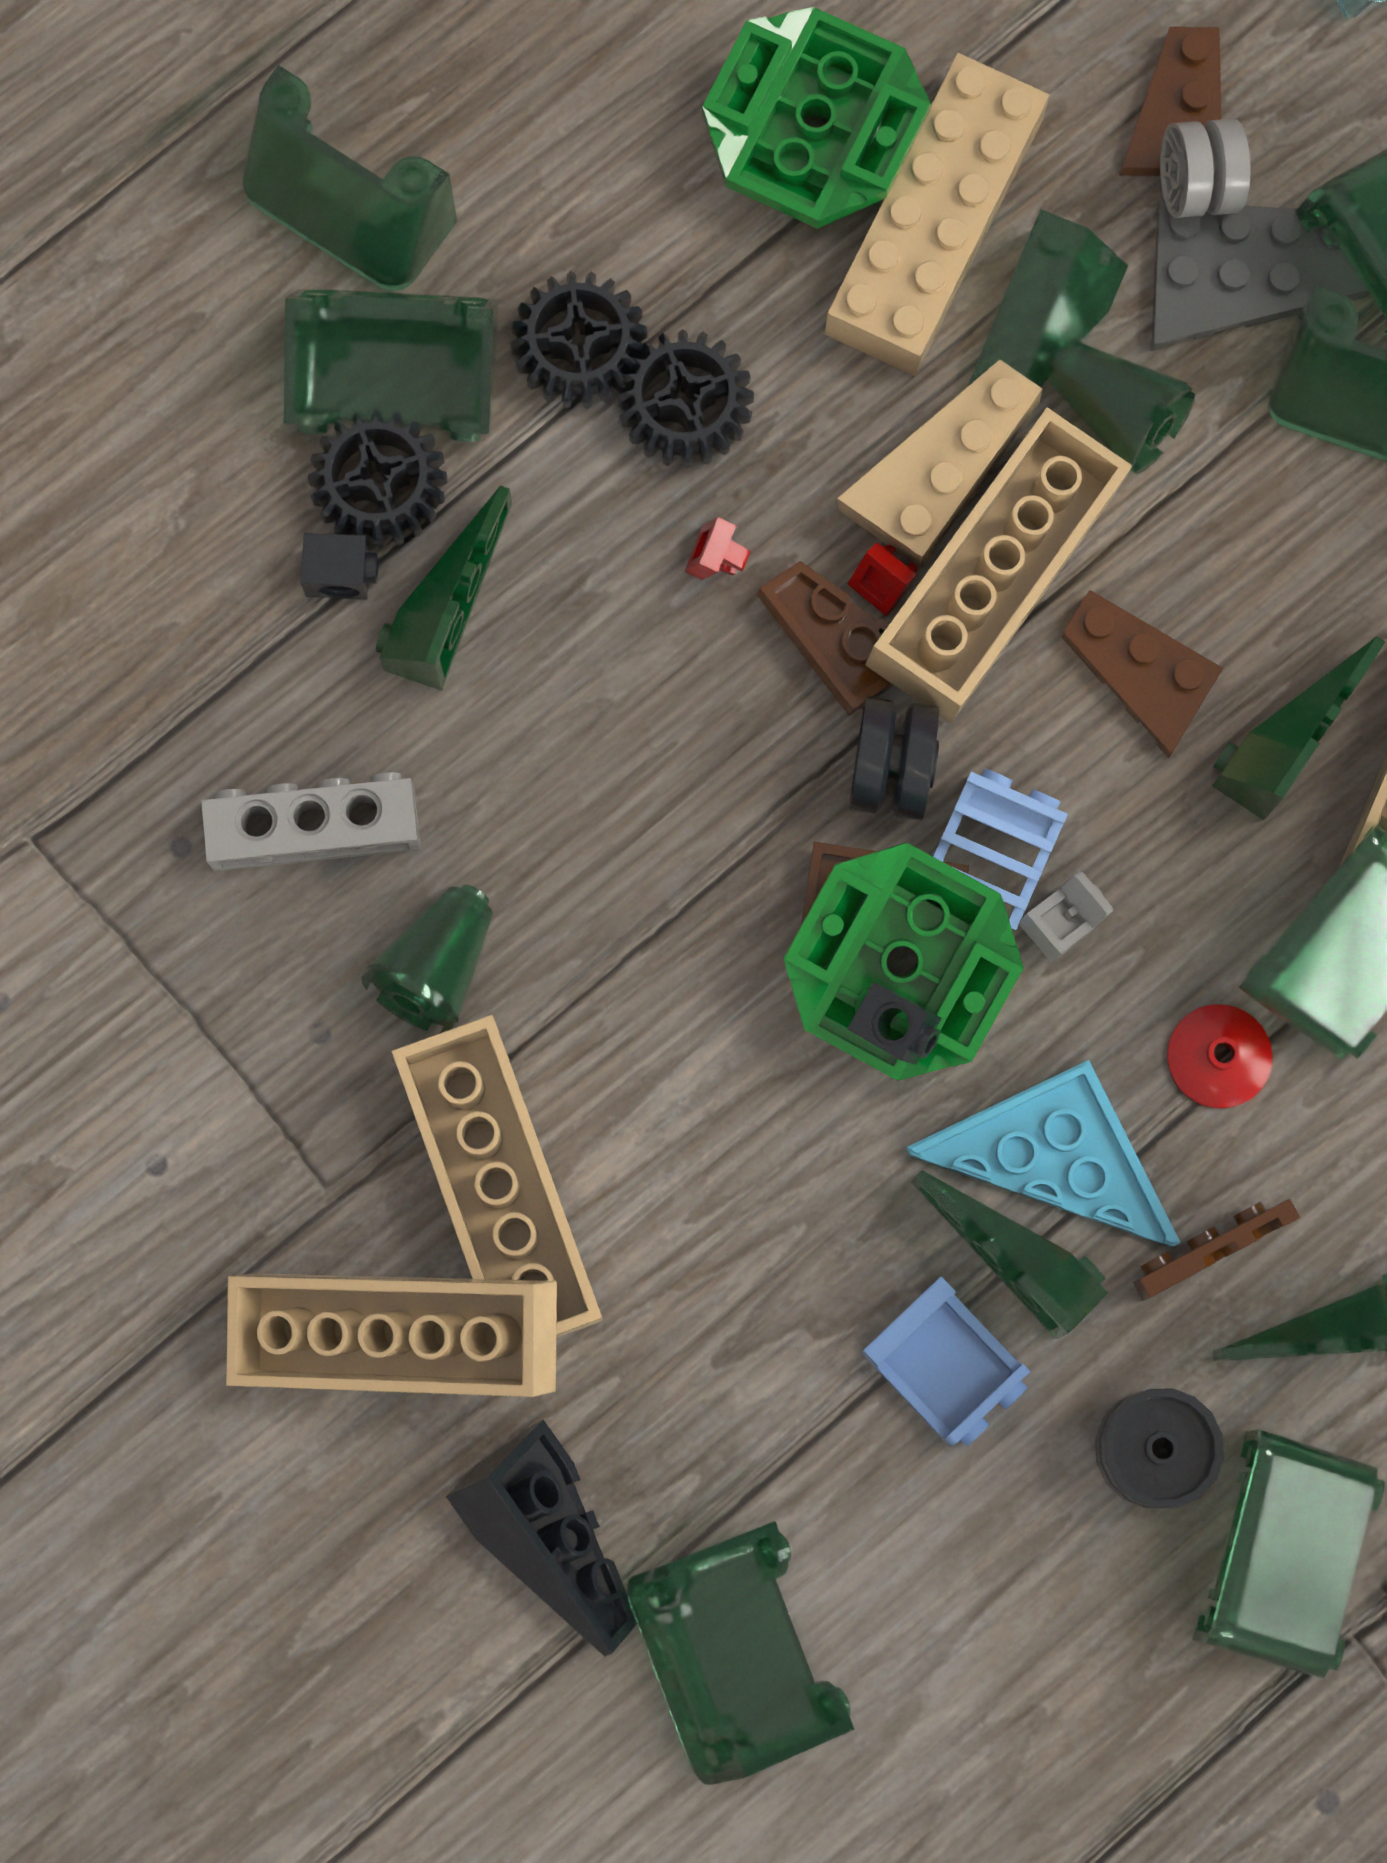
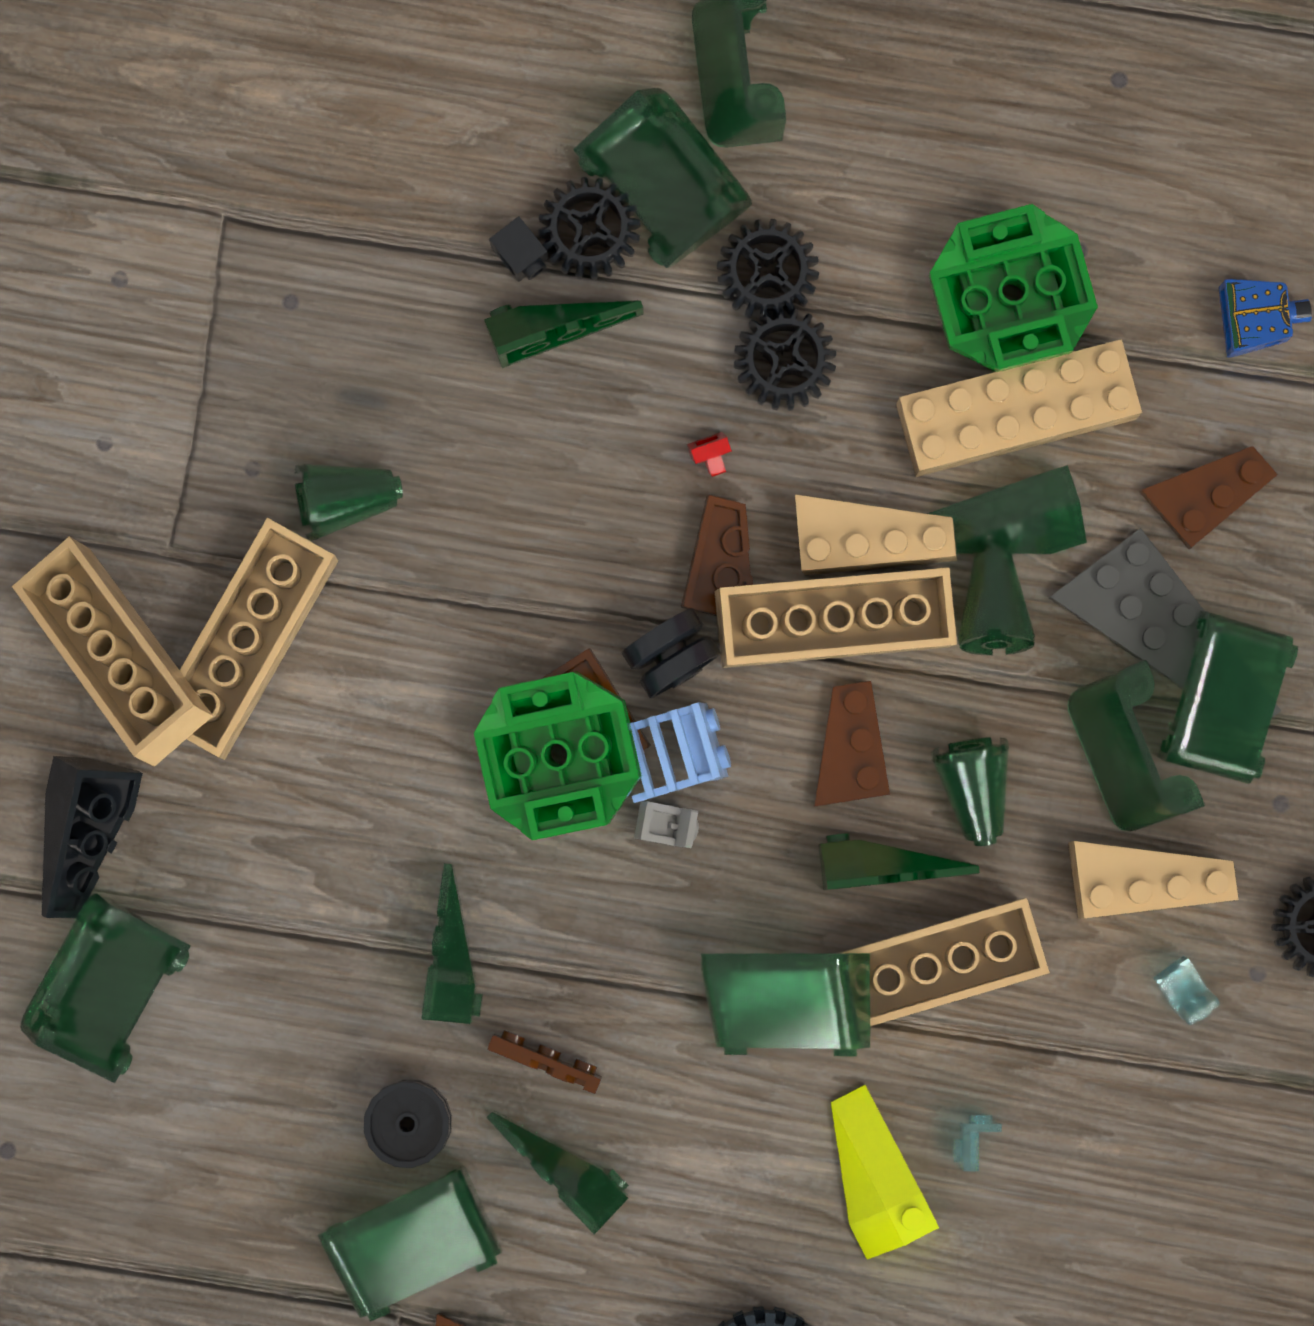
camera: 50 degrees right, 5 degrees up
(285, 843) = (312, 328): light grey brick -> none
(874, 1020) = (503, 770): black brick -> none
(882, 578) = (776, 558): red tile -> none
(947, 1365) = (359, 968): medium blue panel -> none
(1058, 1149) = (533, 930): medium azure tile -> none
(1201, 1074) = (643, 971): red dish -> none
(1205, 168) = (1173, 538): light grey wheel -> none
(1289, 572) = (976, 786): none -> clear green cone

